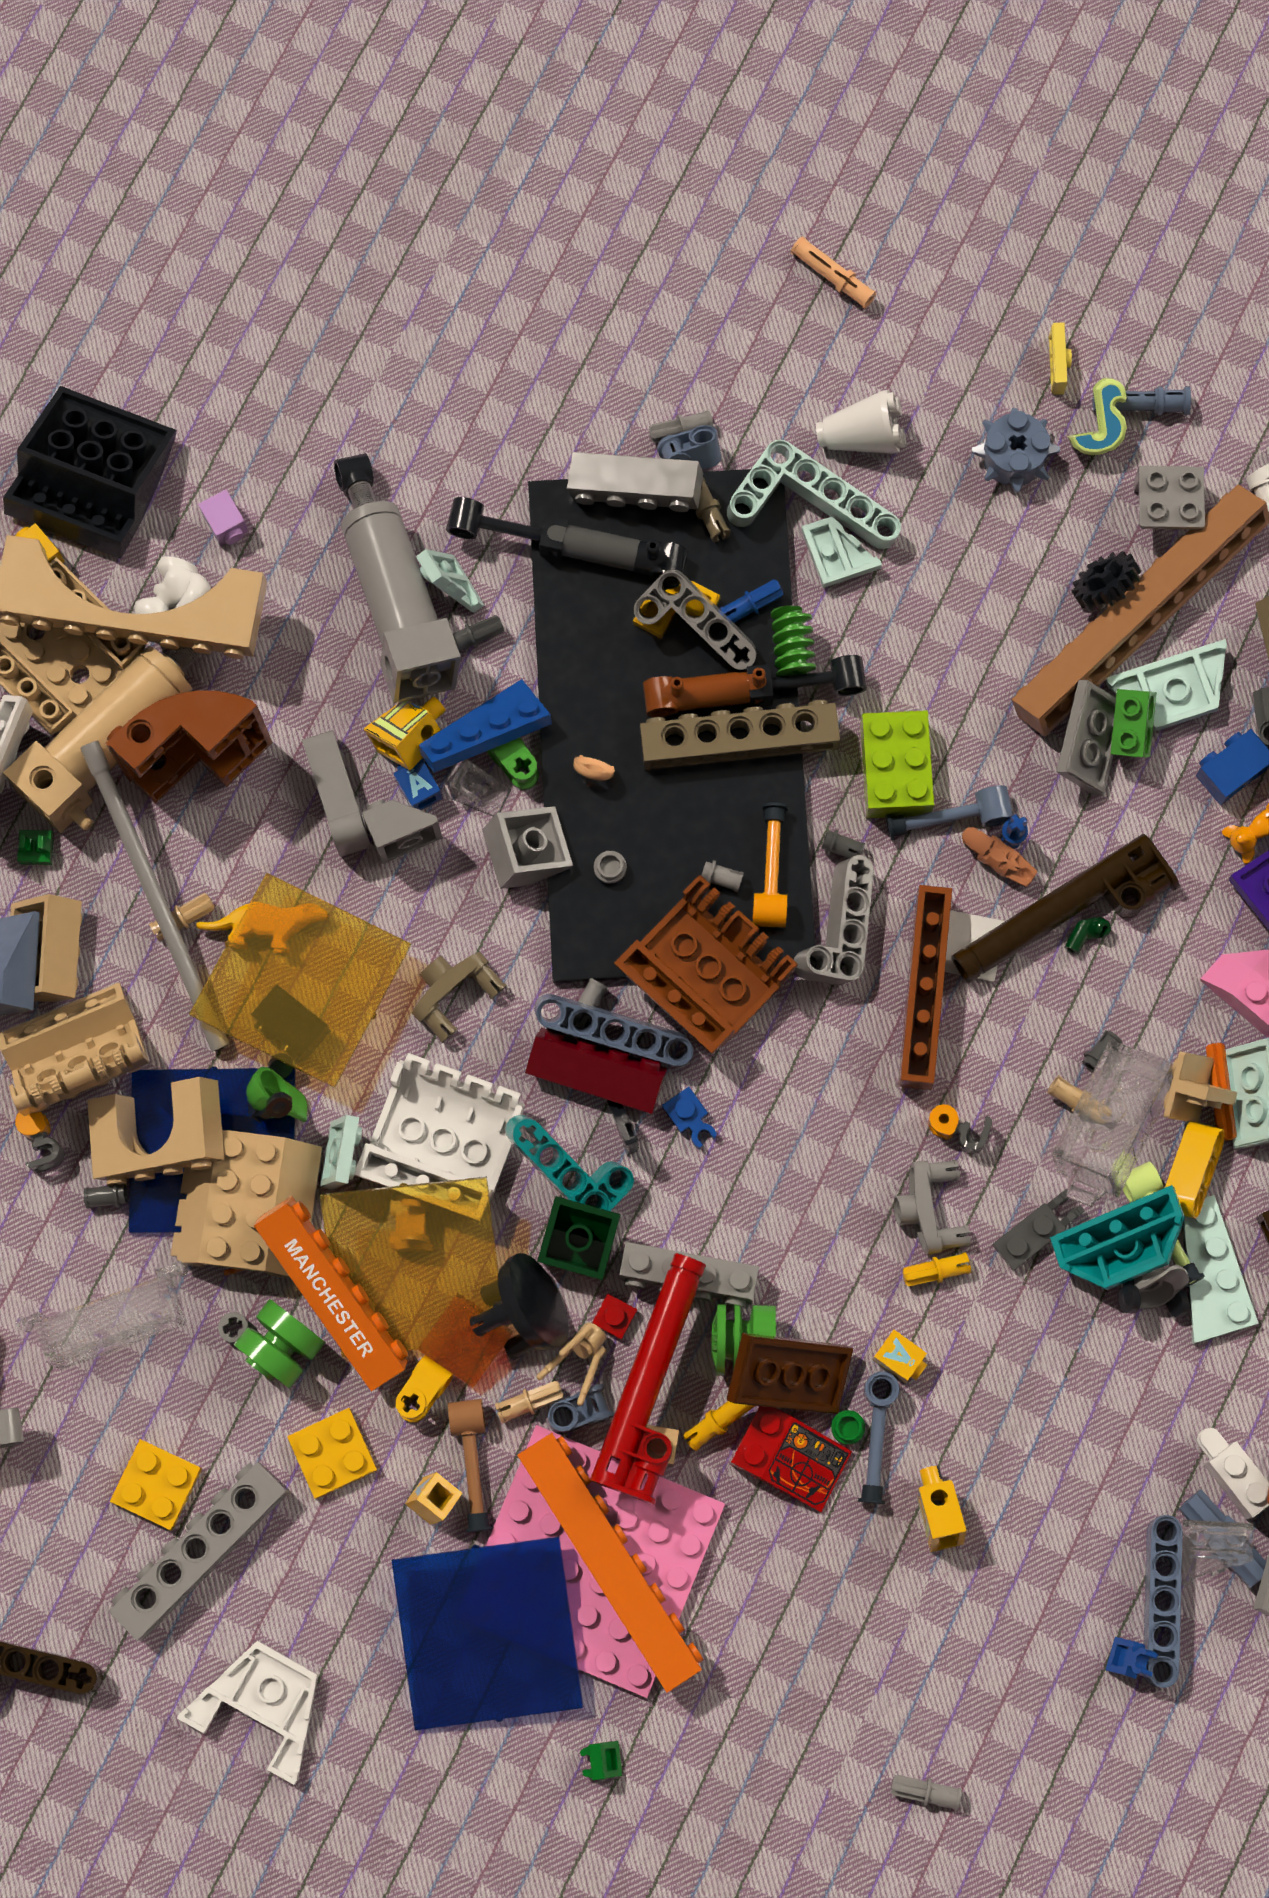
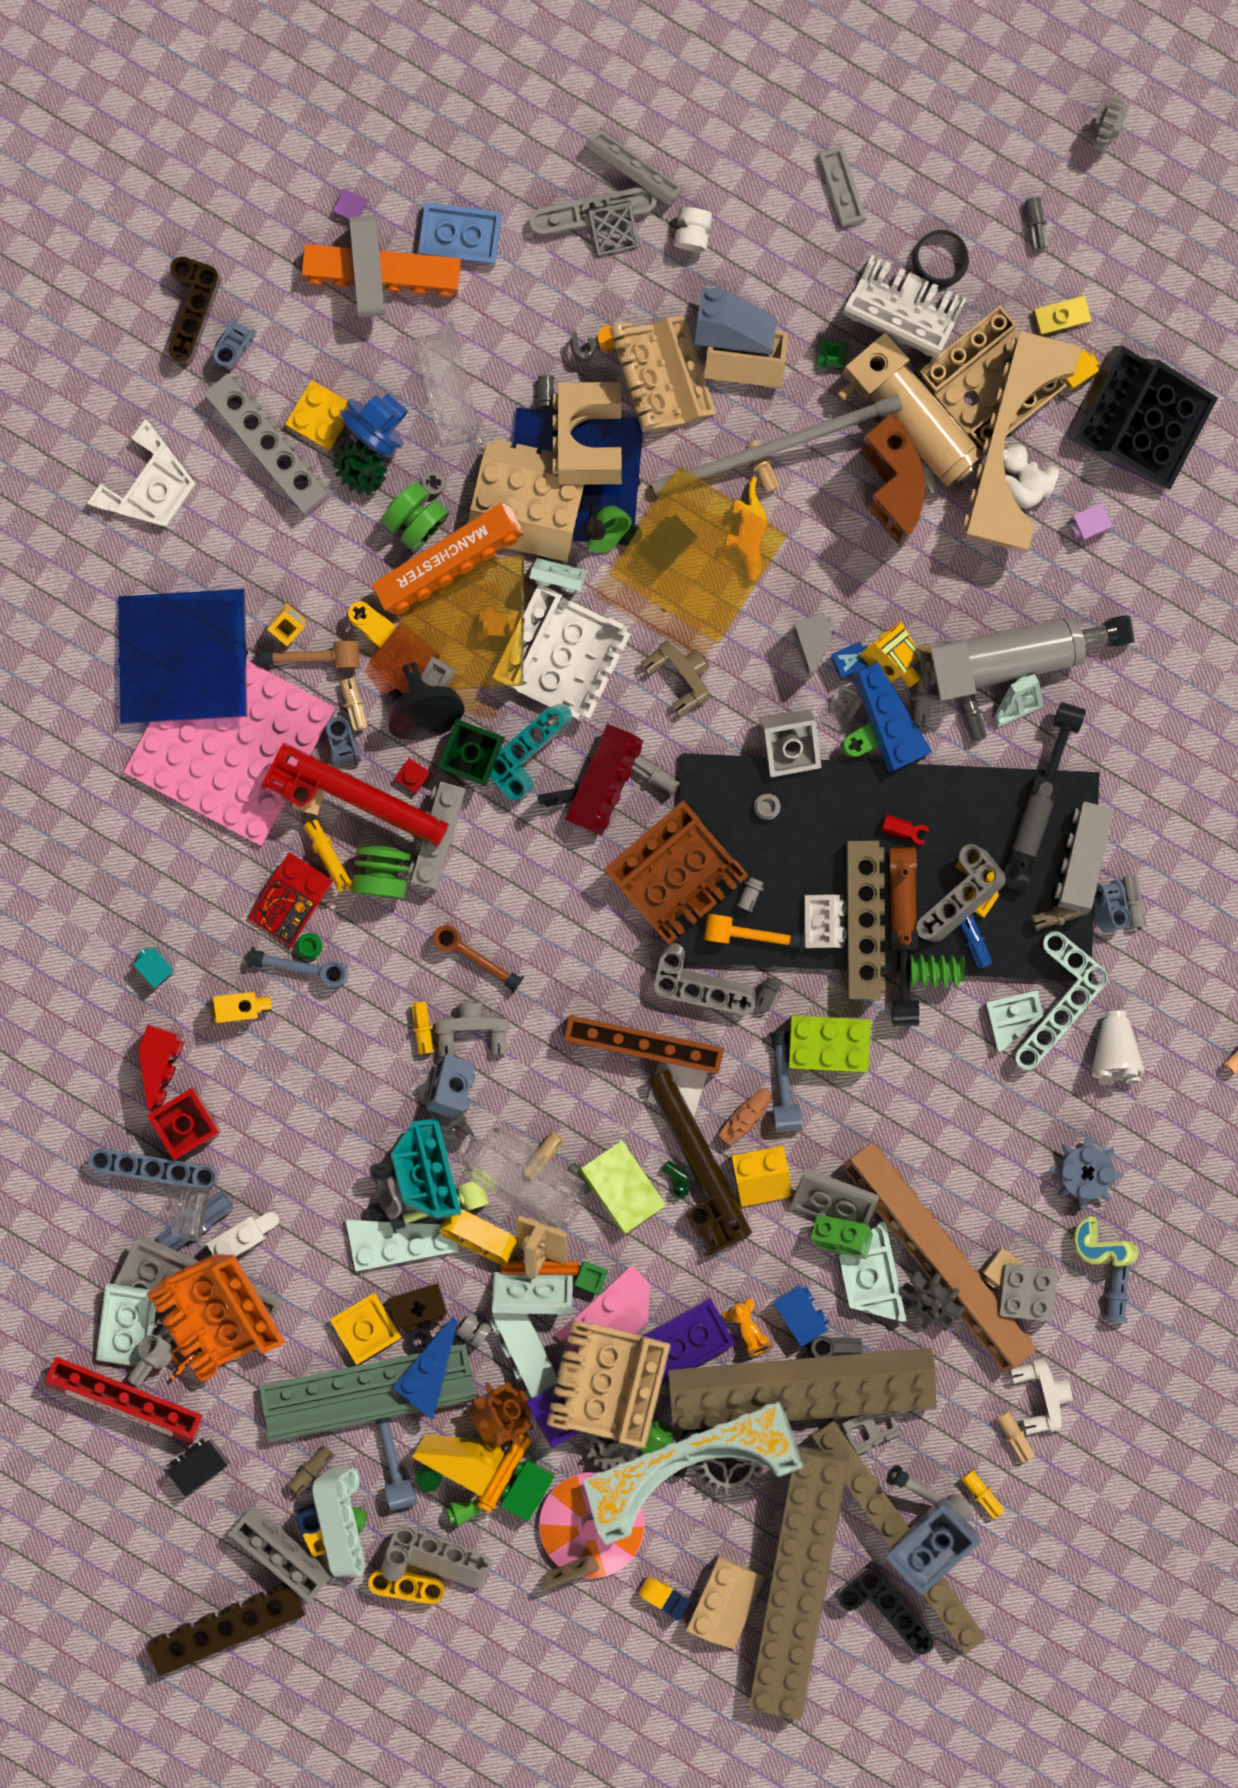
camera: 95 degrees right, 10 degrees up
(65, 1606) = (234, 340): none -> sand blue piece
(161, 1406) = (375, 423): none -> blue piece
(220, 1422) = (359, 467): none -> dark green gear
(332, 1453) = (330, 551): yellow plate -> none
(336, 793) = (850, 595): light grey beam -> none
(463, 696) = (921, 704): none -> light grey pin
(481, 1290) = (438, 673): none -> light grey plate
(584, 1344) = (392, 751): tan plant -> none
(593, 768) = (847, 809): light nougat piece -> none
(604, 1760) = (80, 734): green tile -> none
(610, 1563) = (223, 753): orange brick -> none
(621, 701) = (903, 829): none -> red bar
(625, 1041) = (643, 787): sand blue beam -> none
(687, 1113) = (565, 847): blue plate -> none
(746, 782) = (825, 921): none -> white bracket
(789, 1373) = (349, 903): reddish brown tile -> none
(862, 1164) = (511, 980): none -> dark orange piece
(899, 1629) = (153, 966): none -> teal brick
(901, 1357) = (357, 992): yellow brick -> none
(926, 1792) = (33, 973): light grey axle -> none
(946, 1124) = (535, 1049): leg -> none
(1014, 831) = (762, 1130): blue axle -> none
(1014, 1609) = (156, 1058): none -> red slope
(1022, 1233) = (441, 1097): none -> sand blue brick
(1059, 358) = (1162, 1219): light yellow plate -> none
(1067, 830) = (762, 1175): none -> yellow slope
(1100, 1565) = (184, 1123): none -> red brick
(1106, 581) = (963, 1230): black gear -> none
(1107, 997) = (622, 1187): none -> lime tile
(1129, 1658) = (113, 1137): blue plate -> none
(1143, 542) = (995, 1268): none -> tan brick
(1197, 609) = (931, 1300): none -> dark grey gear
(1225, 1026) = (590, 1278): none -> green plate

